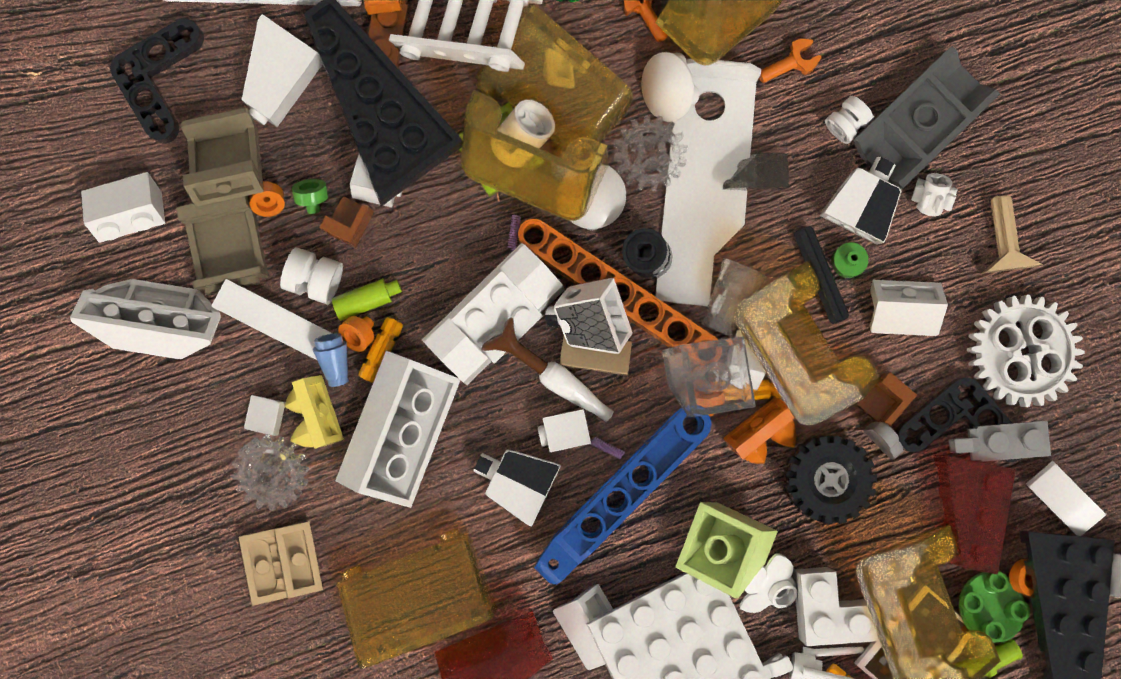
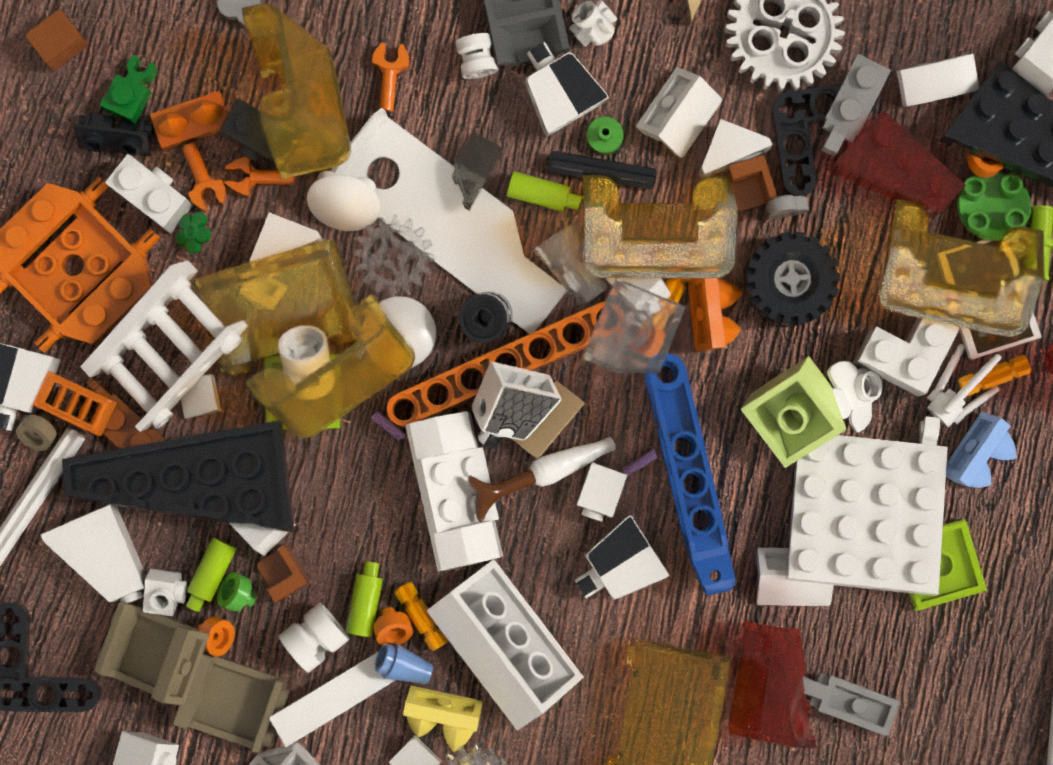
camera: 60 degrees left, 0 degrees up
(276, 137) = (163, 592): none -> white plate
(314, 164) = (209, 573): none -> lime cylinder
(446, 74) = (201, 398): none -> white slope
(612, 53) = (281, 236): none -> white slope
(773, 238) = (542, 192): none -> lime cylinder
(908, 365) = (732, 145): none -> white slope

